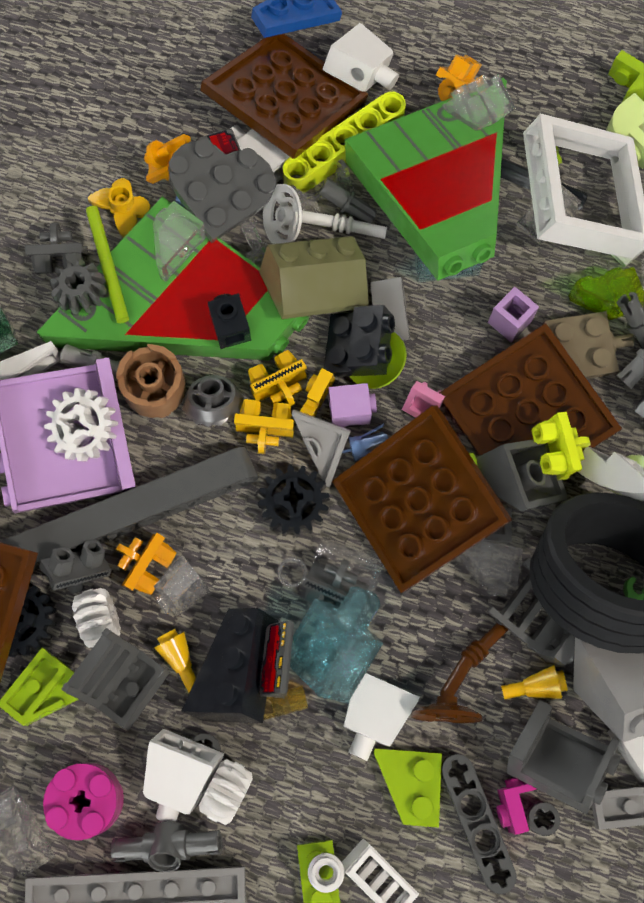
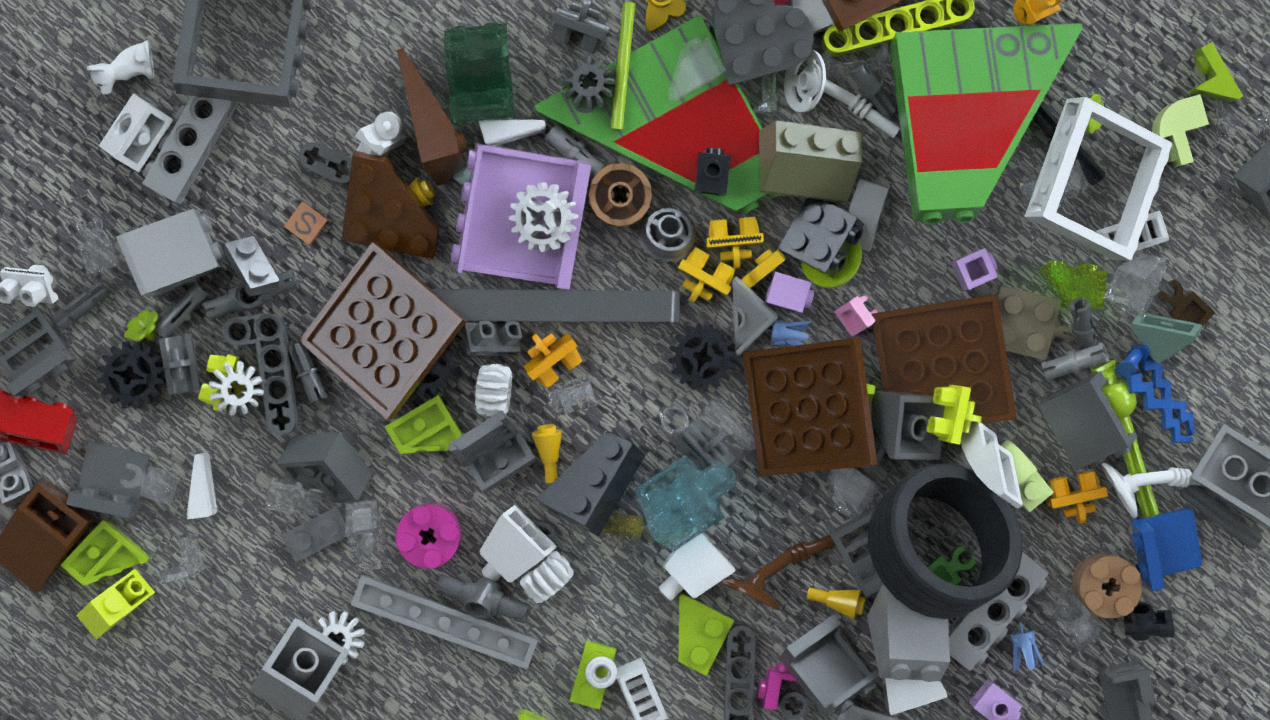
camera: 25 degrees right, 15 degrees up
(276, 659) = (631, 492): slope -> none
(480, 102) = (1037, 56): clear slope -> none

